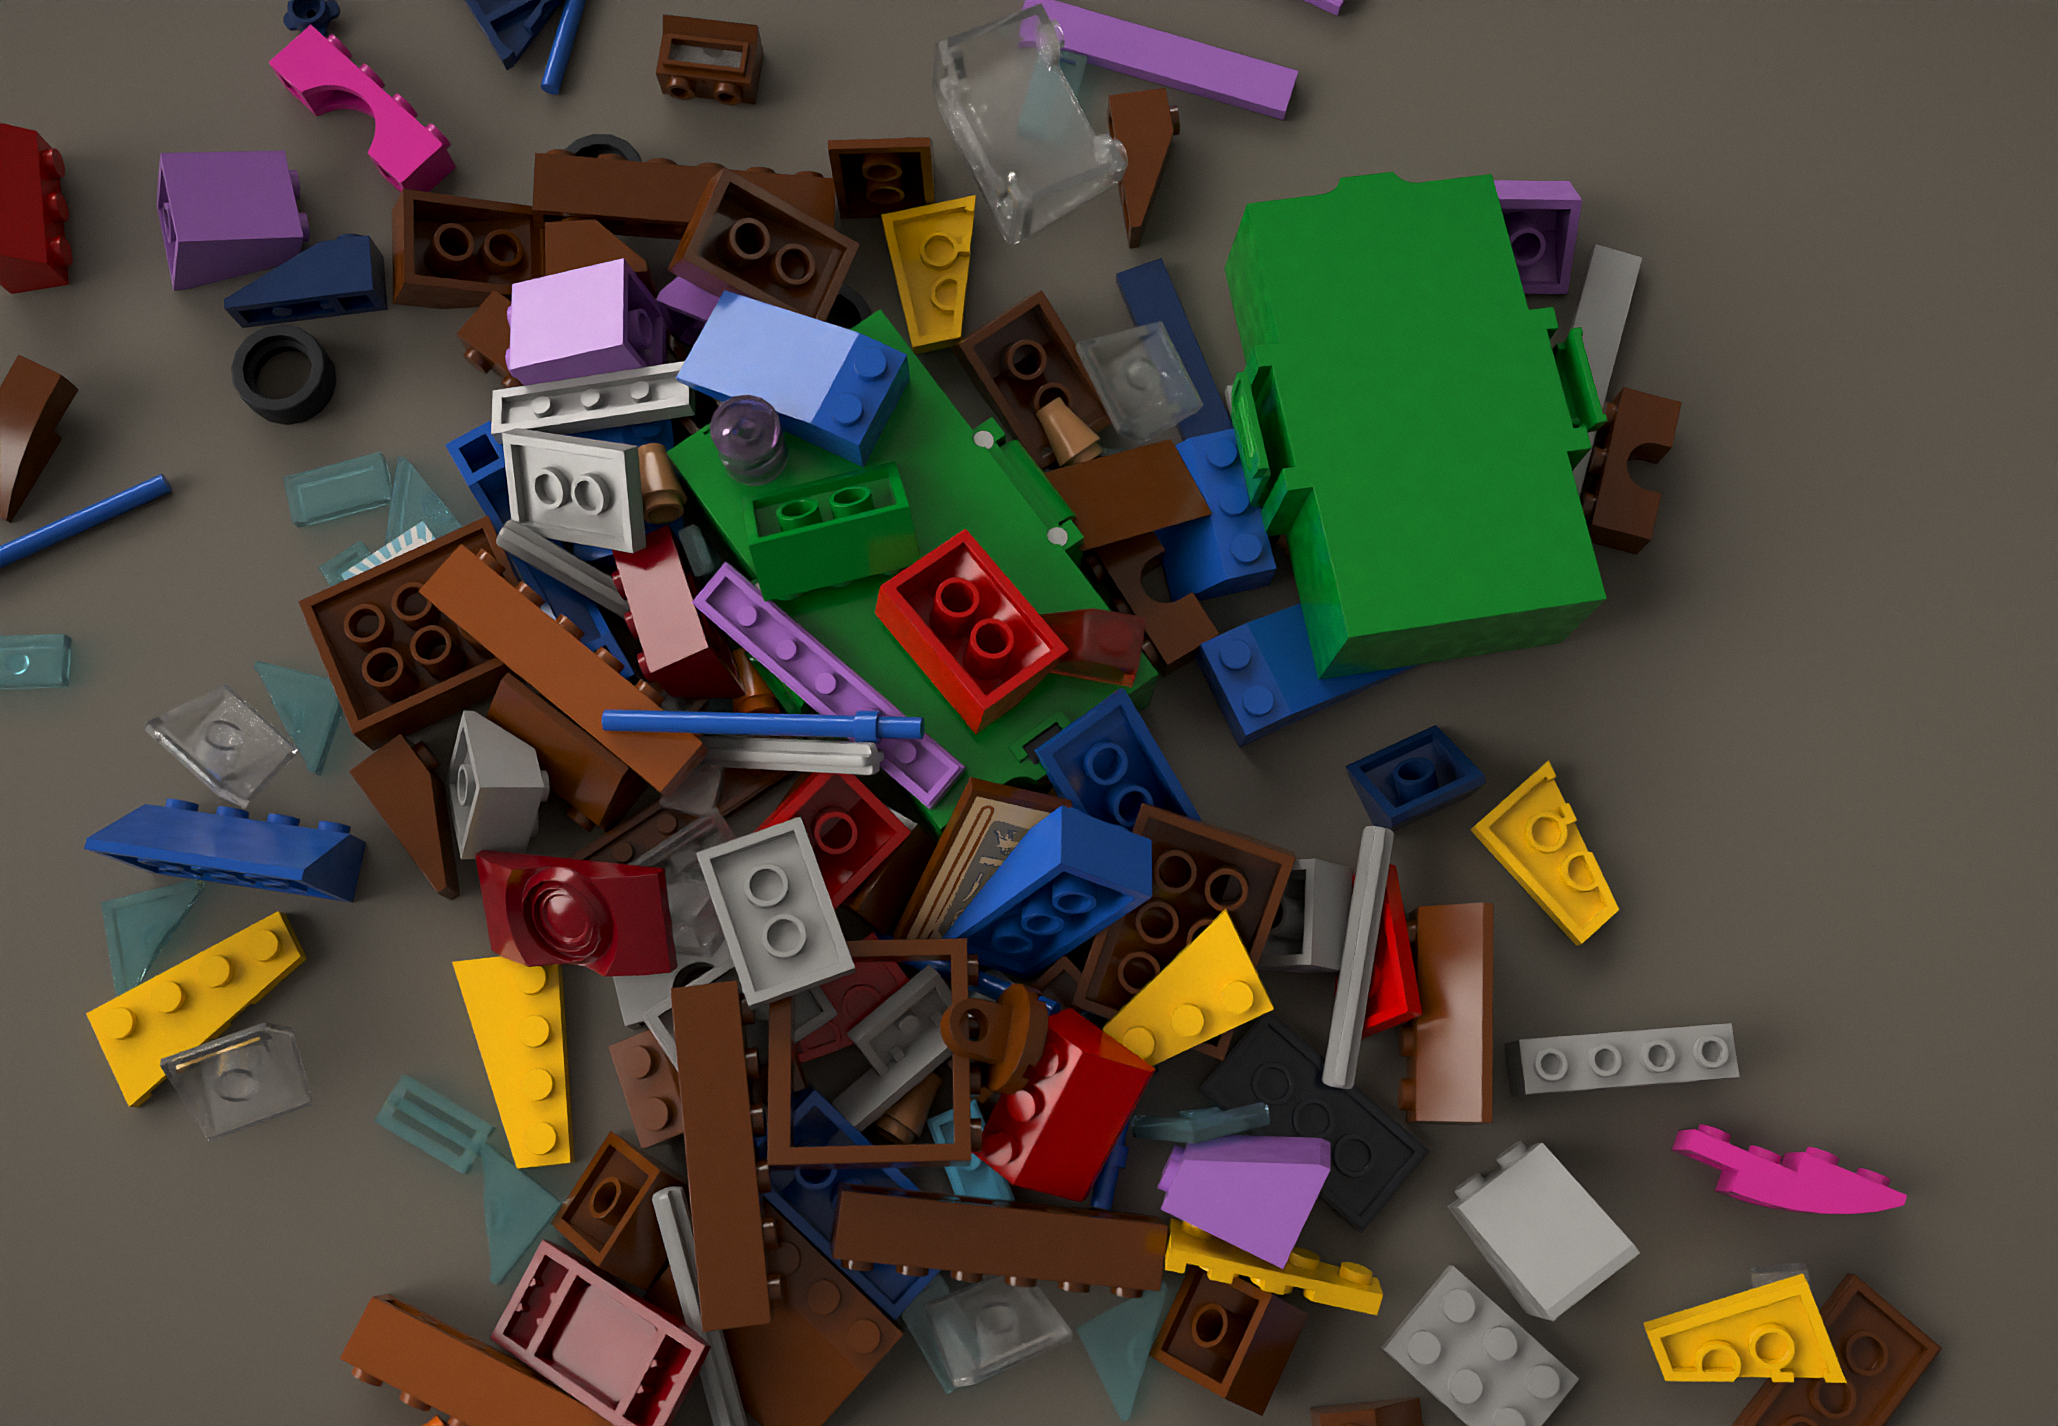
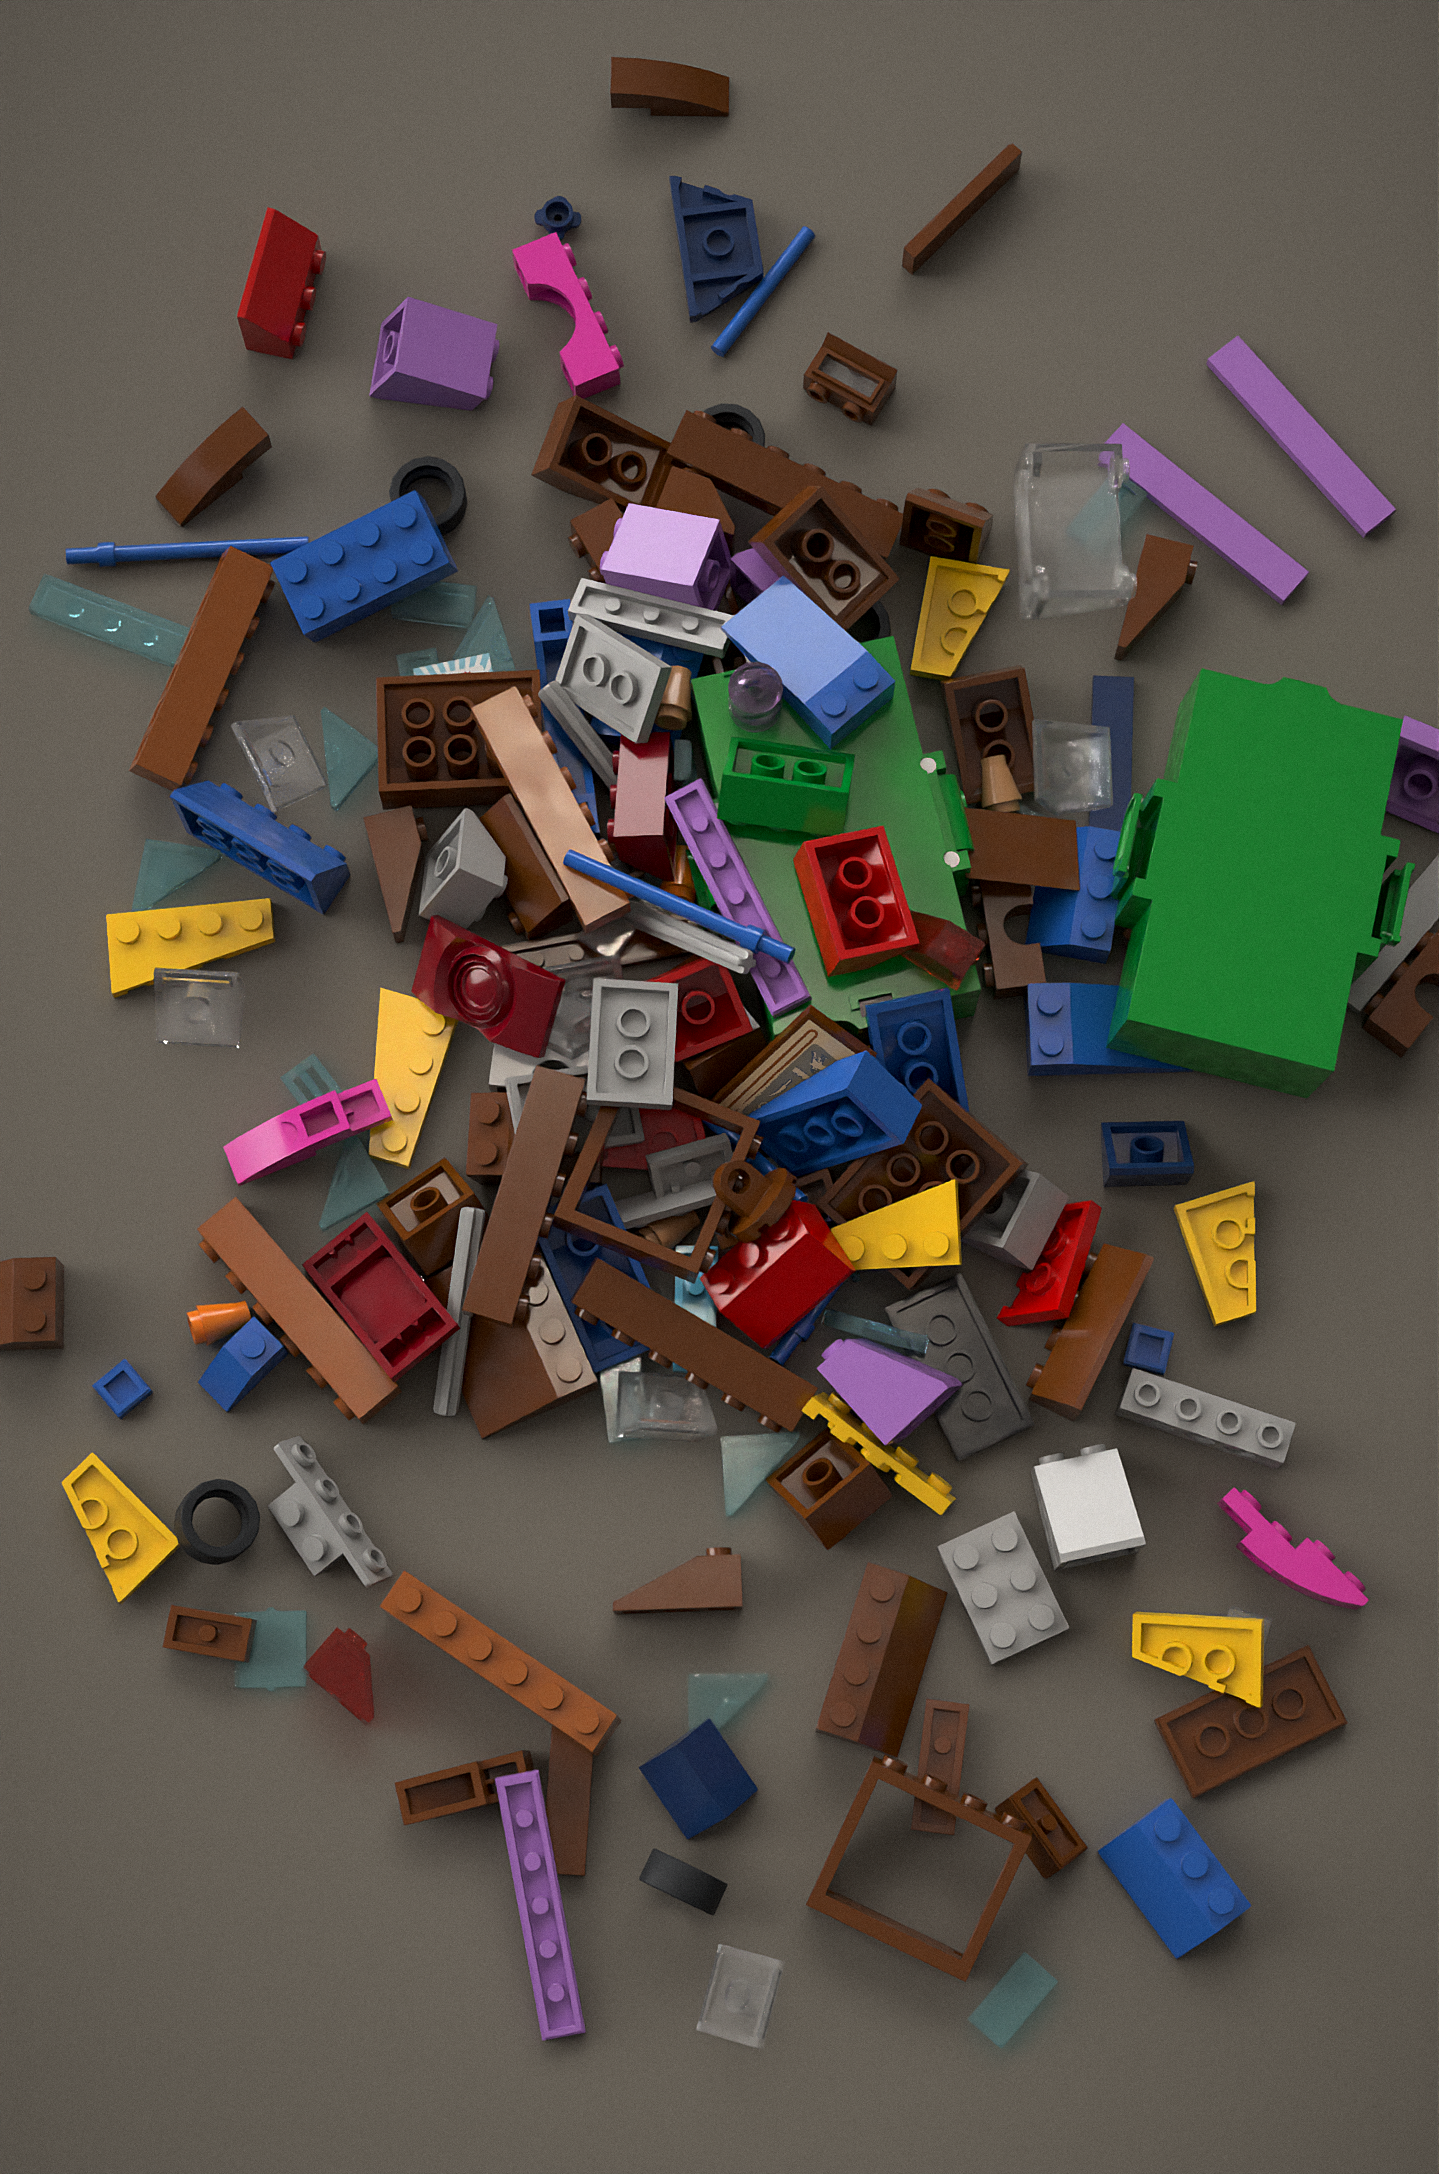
camera: 25 degrees right, 0 degrees up
(90, 676) = (202, 670): none -> dark orange brick
(234, 480) = (364, 566): none -> blue brick
(318, 283) = (483, 437): dark blue slope -> none
(429, 1173) = (305, 1130): none -> dark pink slope
(1358, 957) = (1042, 1259): light grey axle -> none
(1518, 1004) = (1148, 1349): none -> blue tile

